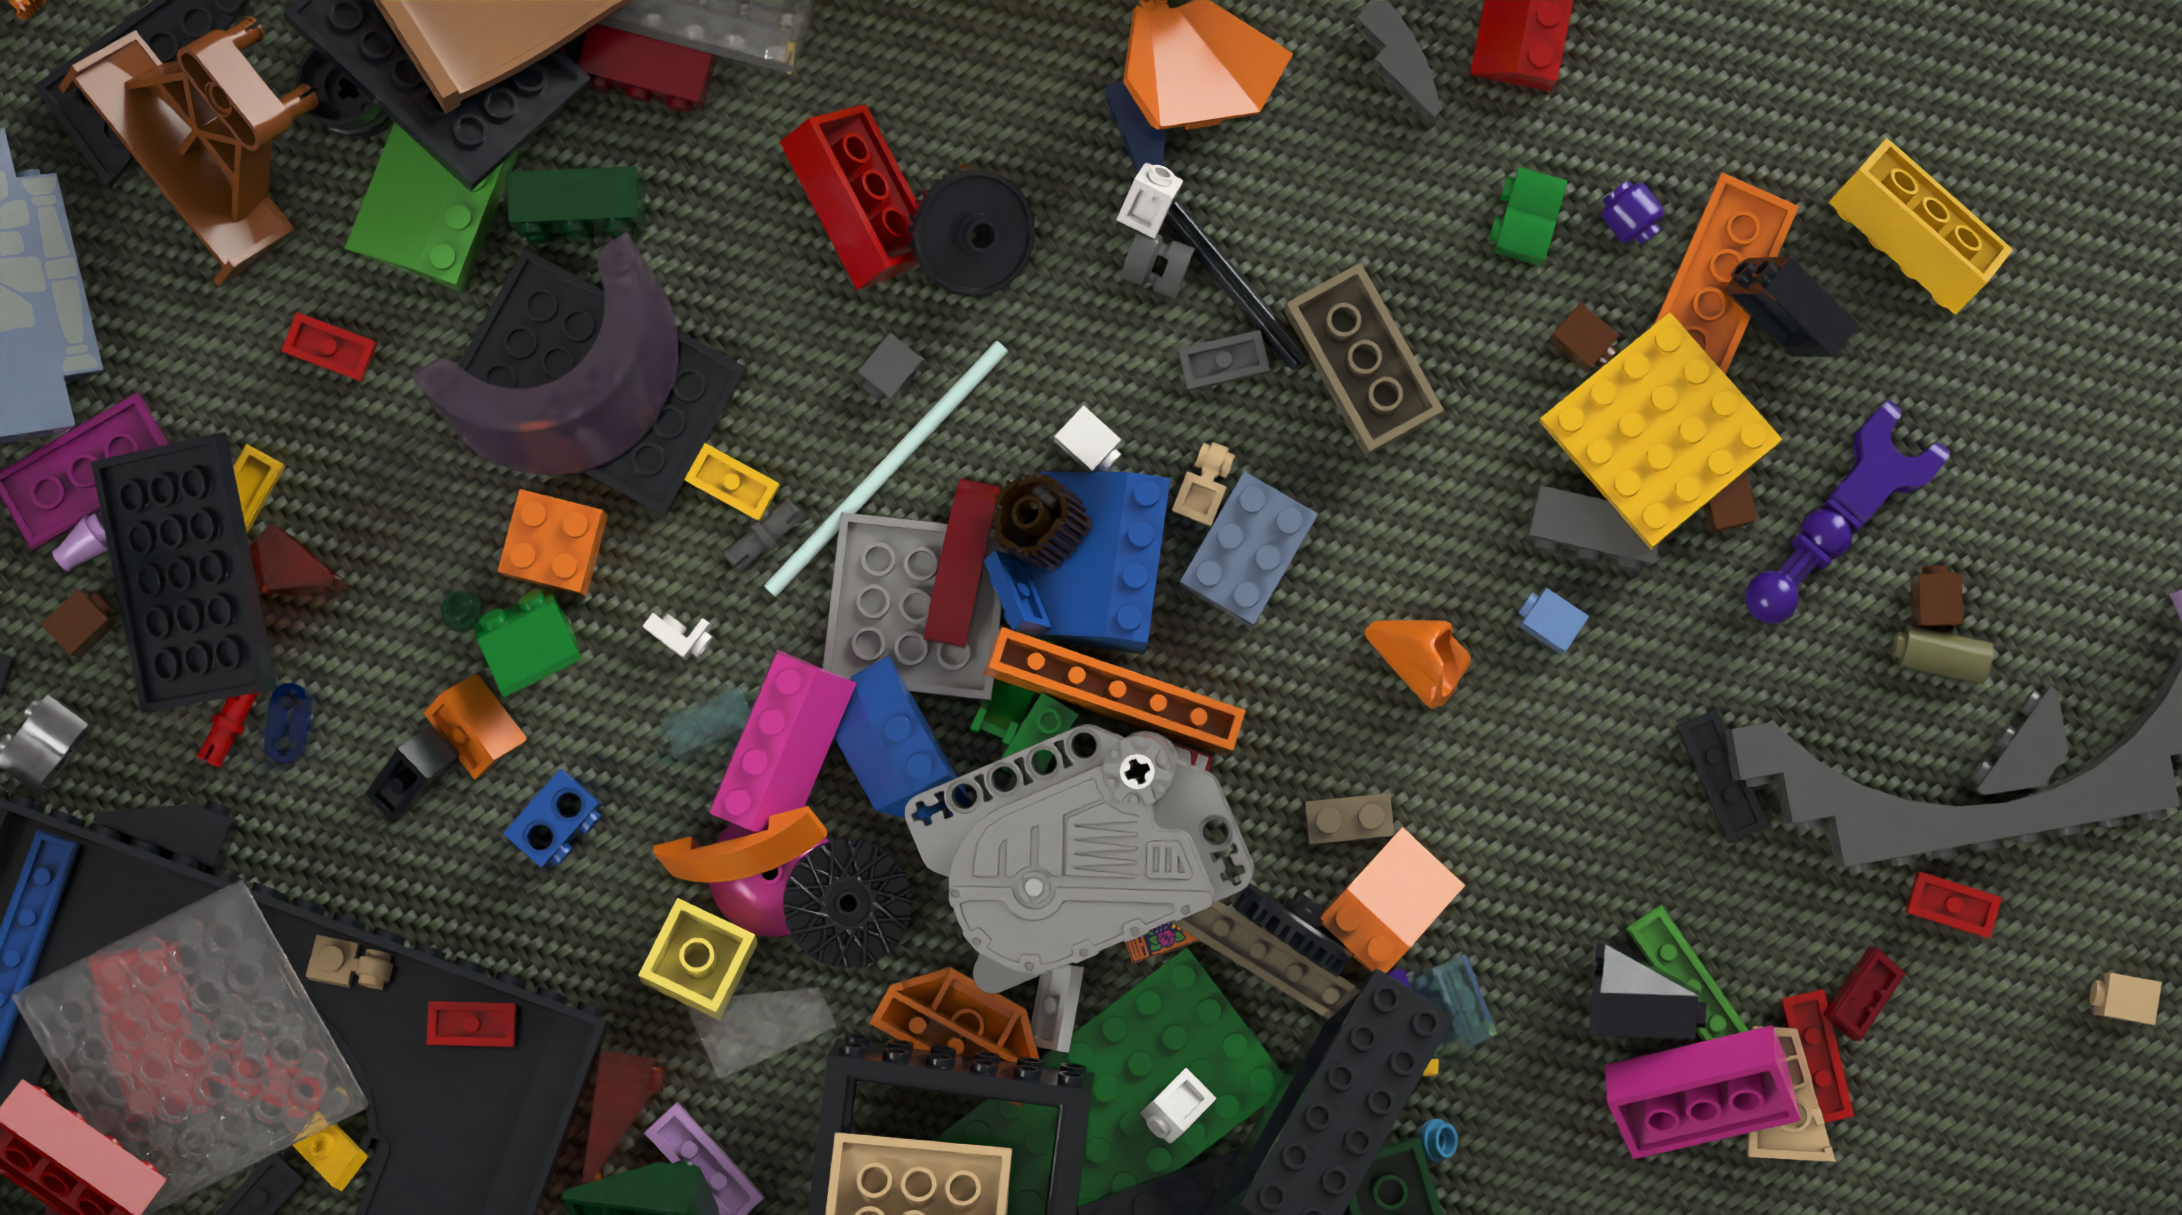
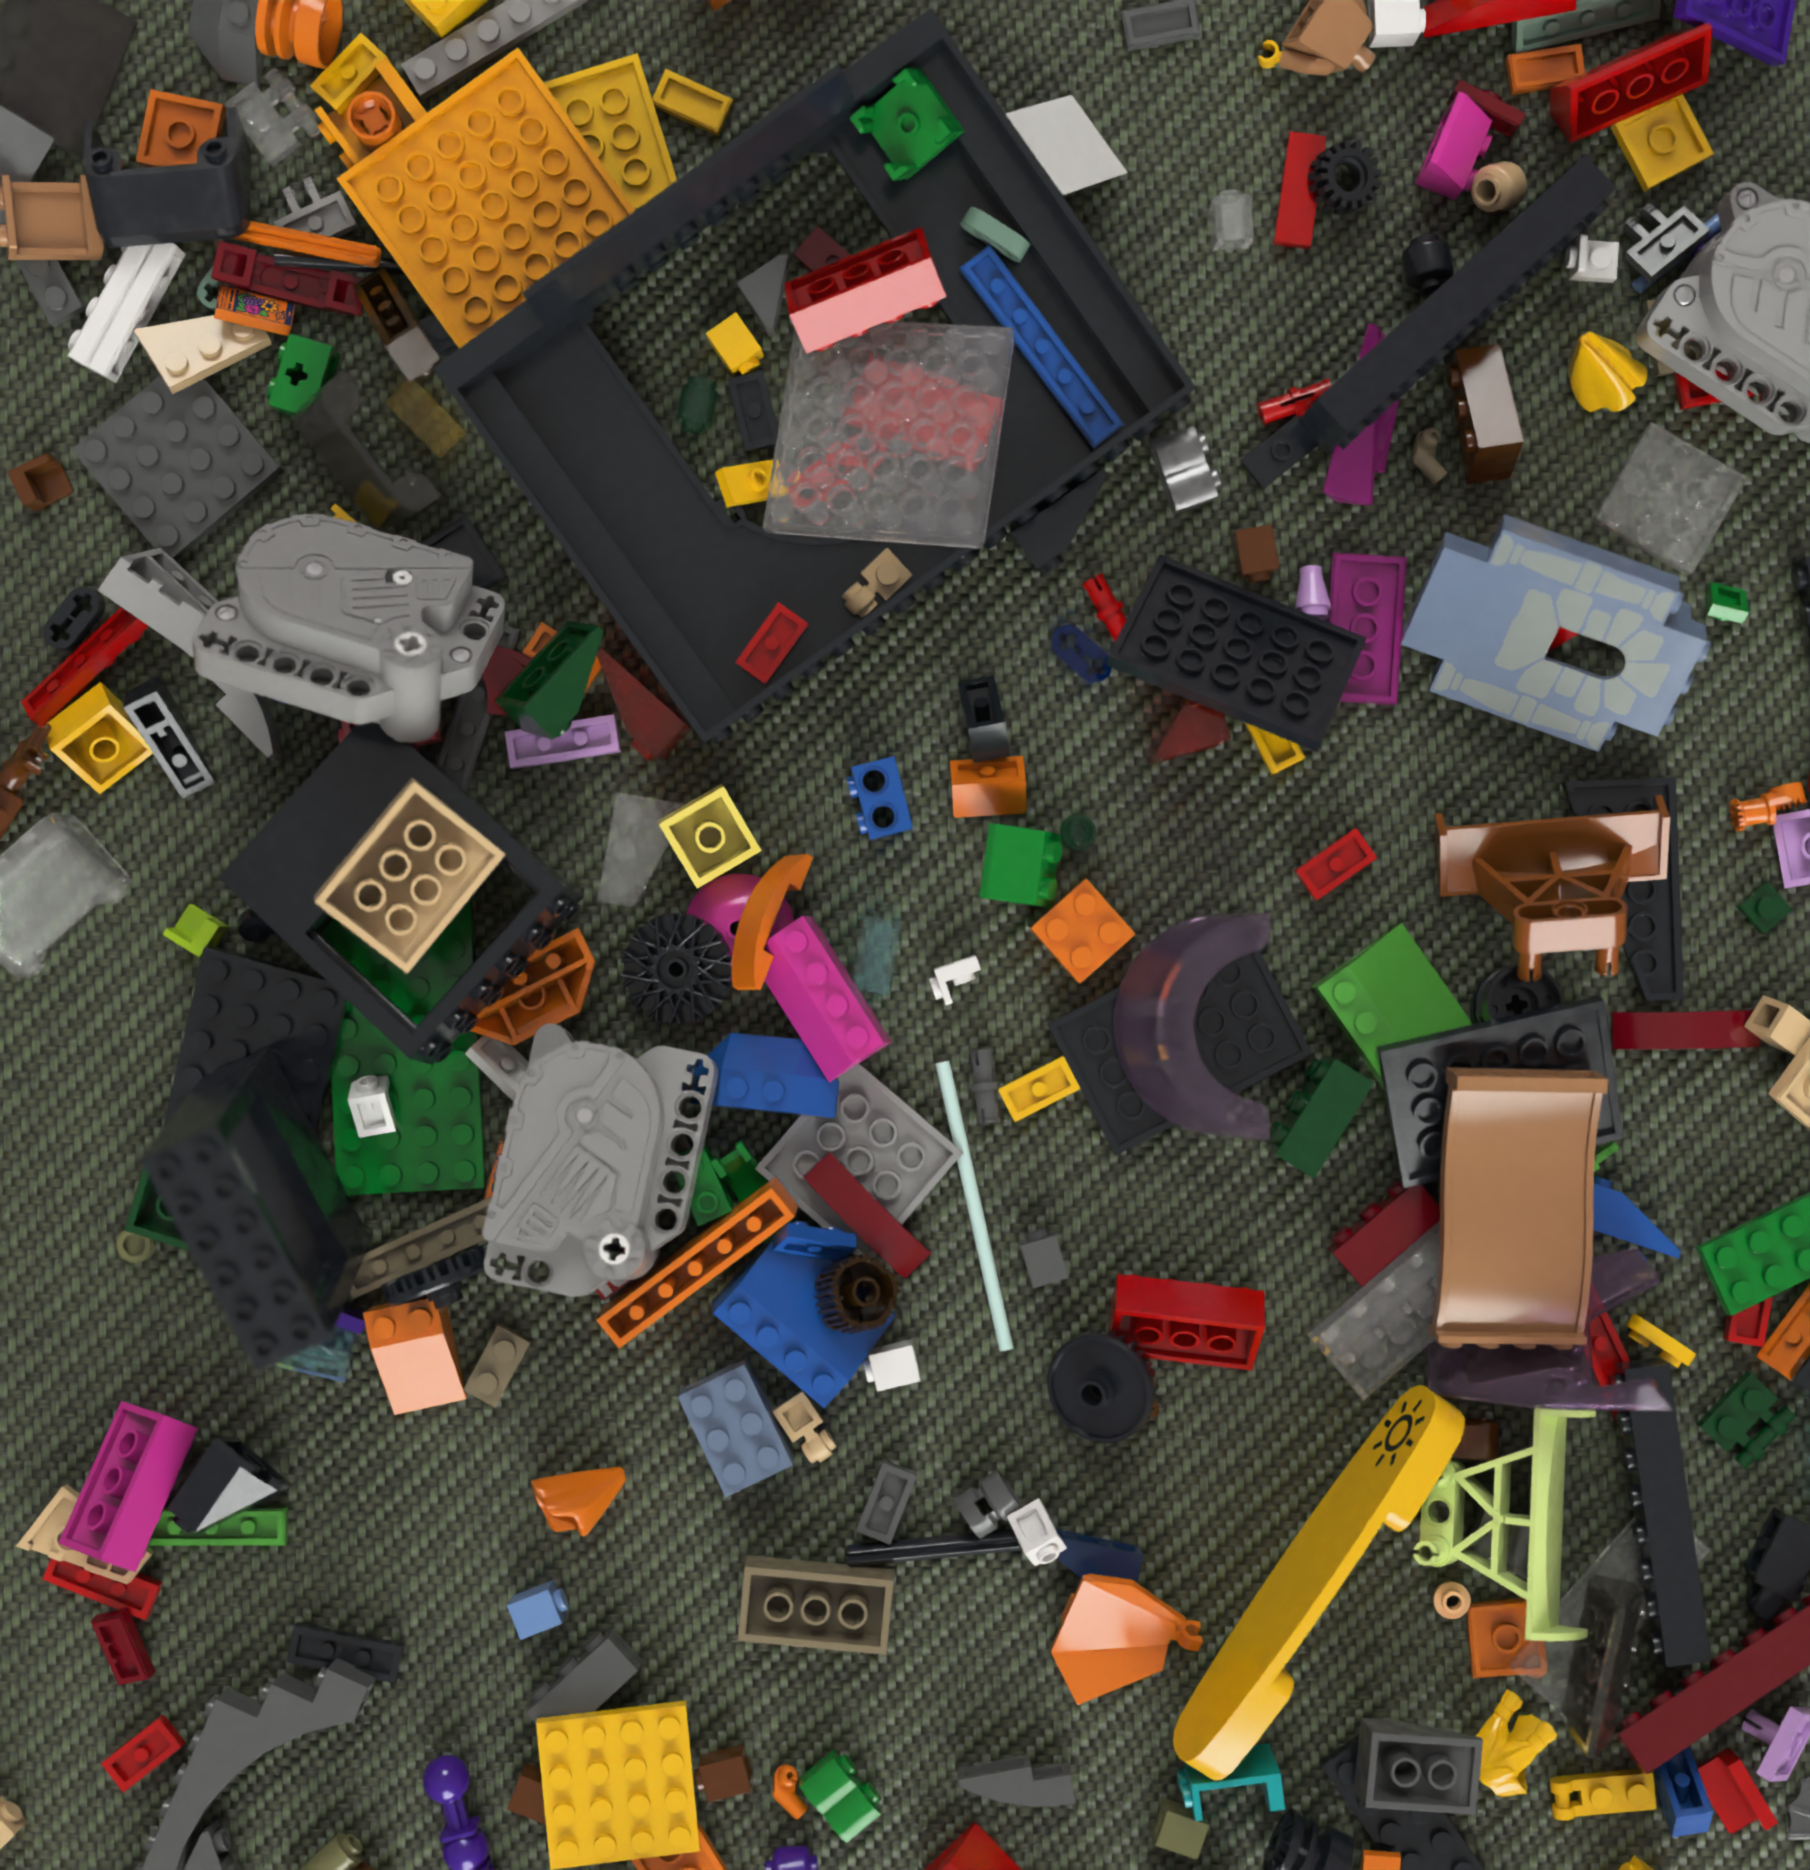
camera: 125 degrees right, 5 degrees up
(1562, 272) = (784, 1791): none -> orange arm

